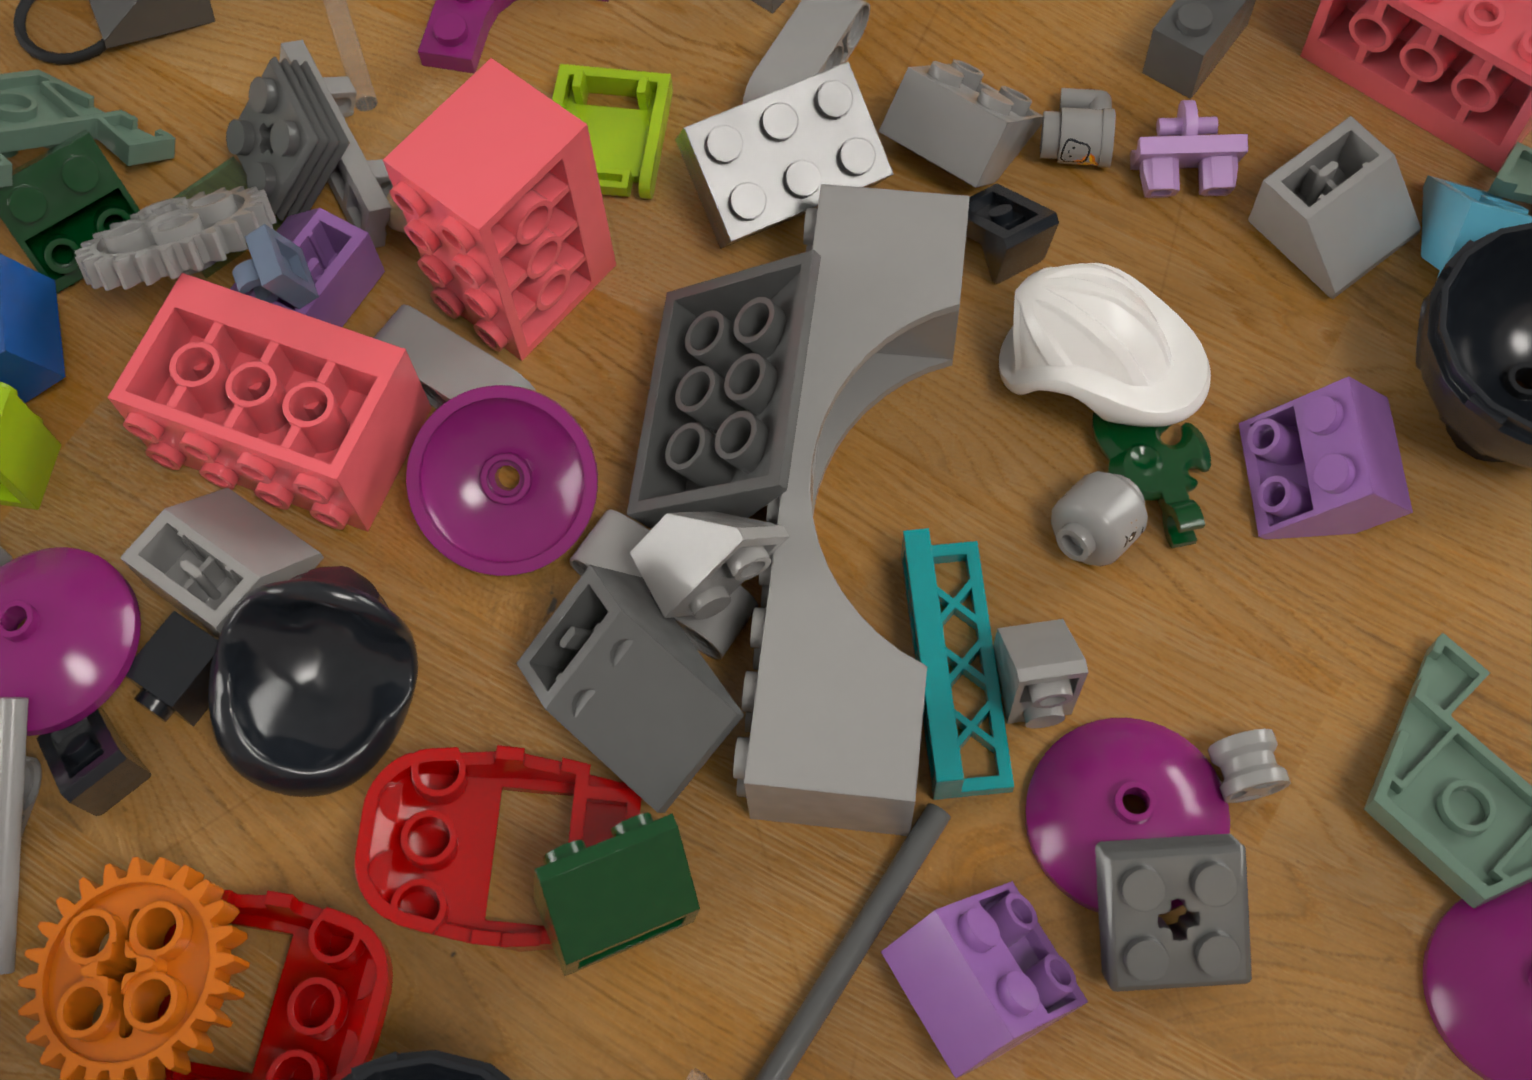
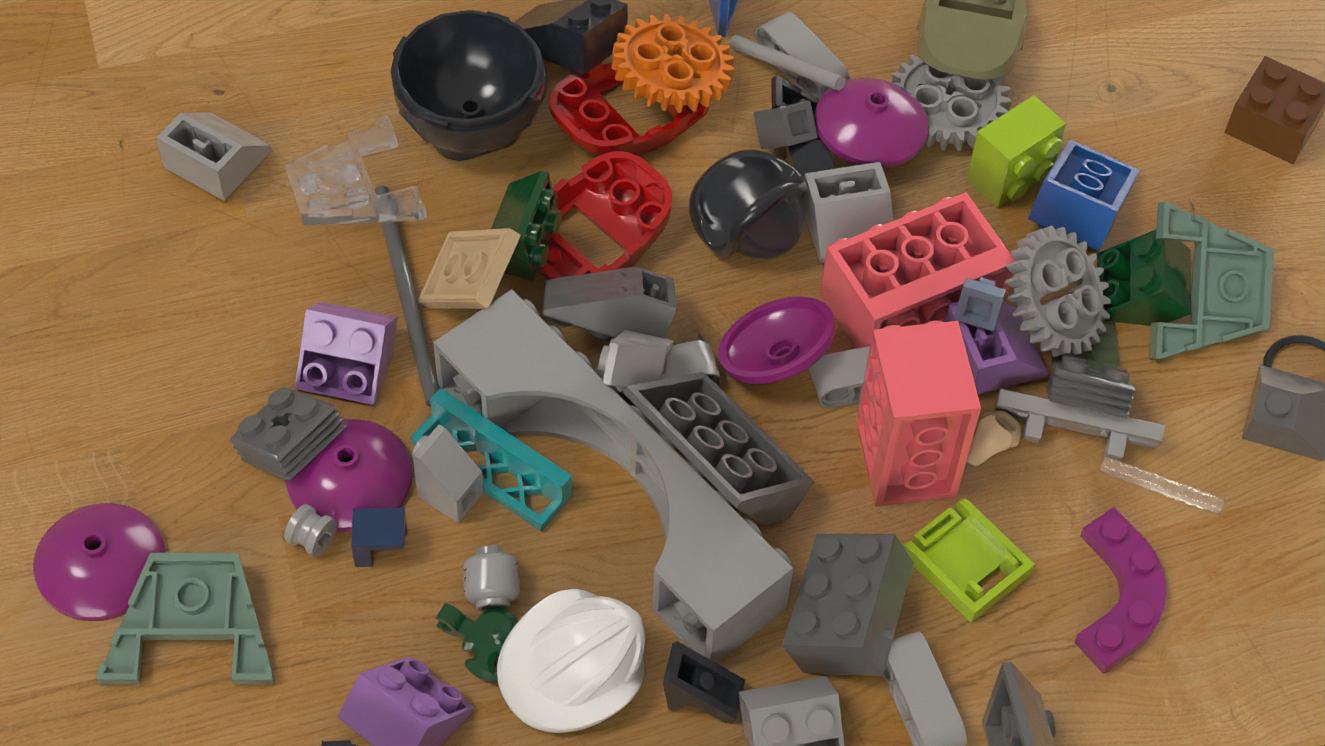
camera: 125 degrees right, 10 degrees down
(148, 723) = (785, 125): none -> dark grey panel
(746, 893) = (469, 269): none -> tan tile
(1175, 681) = (376, 531): none -> dark blue panel

